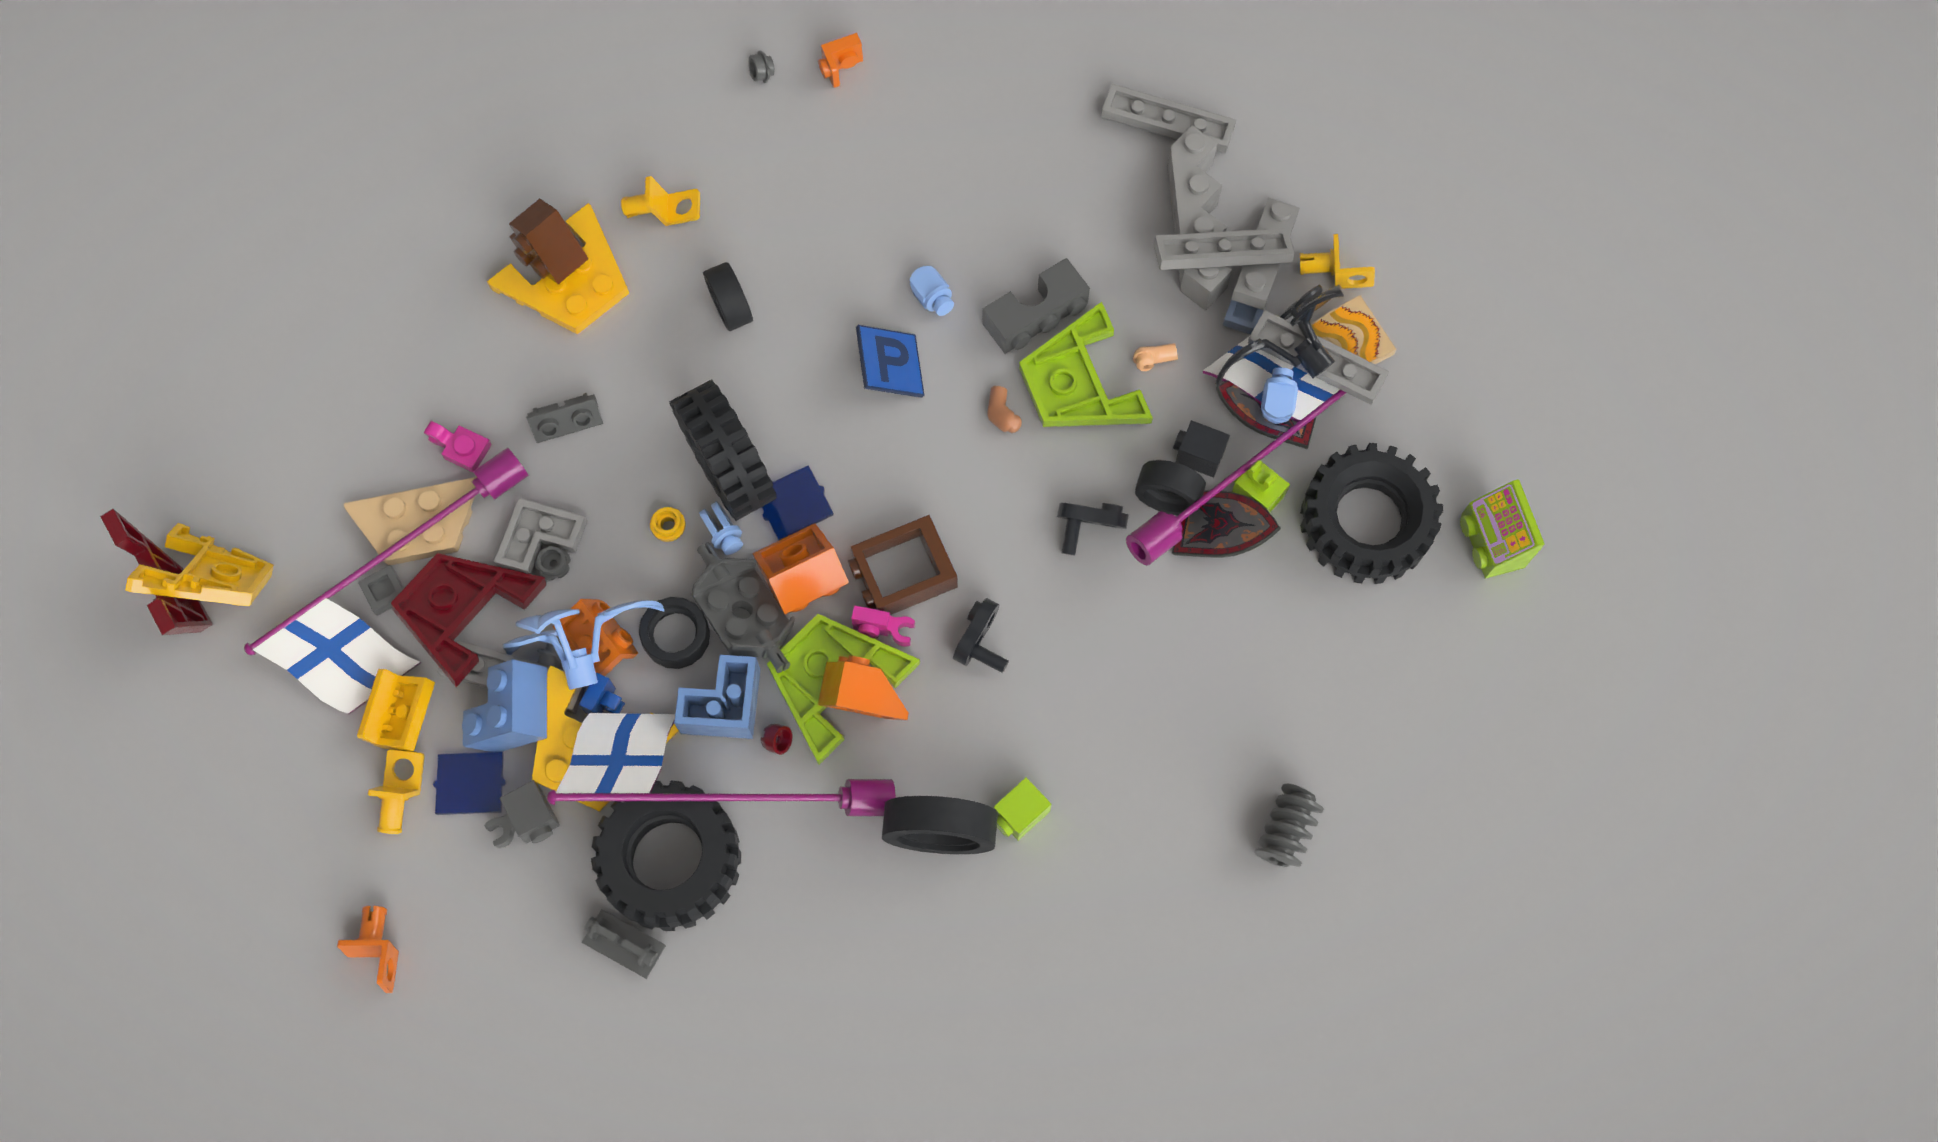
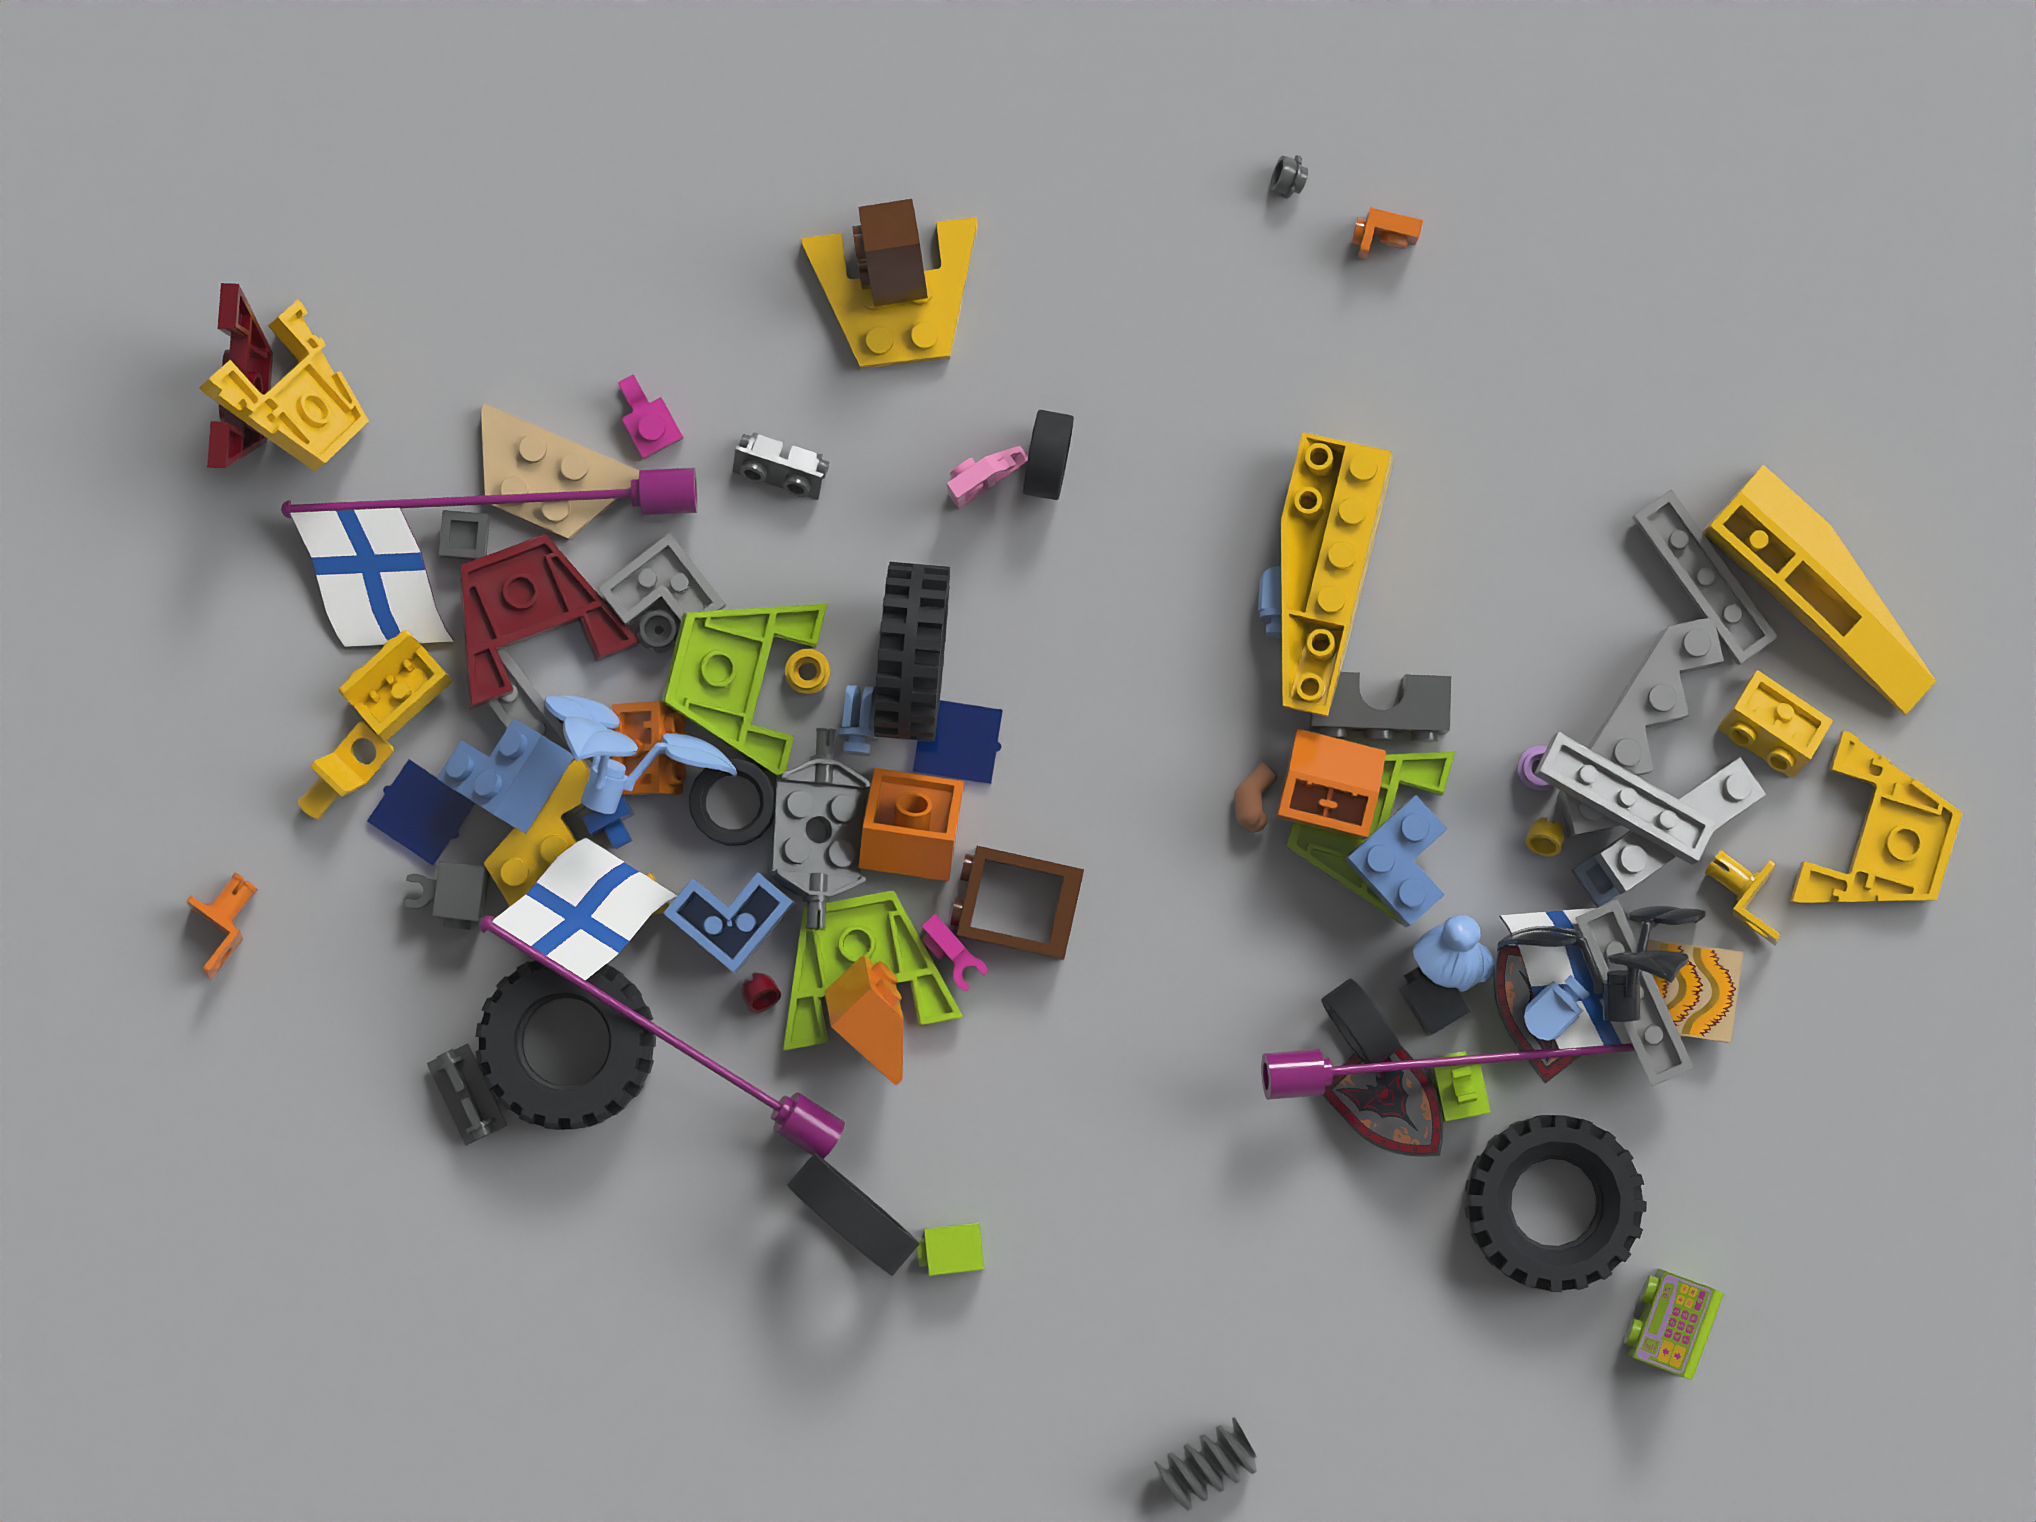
camera: 35 degrees right, 15 degrees up
(610, 557) = (721, 671): none -> lime wing
(662, 204) = (1055, 277): yellow bracket -> none
(693, 337) = (974, 478): none -> bright pink wing
(889, 361) = (1172, 656): blue piece -> none
(940, 242) = (1324, 561): none -> yellow wedge
(969, 646) = (1060, 1016): black piece -> none
(1045, 364) = (1331, 784): none -> orange slope
(1109, 516) = (1274, 1002): black piece -> none
(1115, 383) = (1388, 863): none -> medium blue brick
(1148, 356) = (1455, 849): light nougat arm -> none
(1158, 291) = (1524, 769): none -> lavender plate
(1193, 405) = (1453, 955): none -> light blue hair
(1200, 314) = (1545, 837): none -> yellow hinge
(1235, 81) = (1819, 583): none -> yellow wedge
(1274, 169) = (1775, 725): none -> yellow bracket
(1395, 179) = (1901, 841): none -> yellow wing

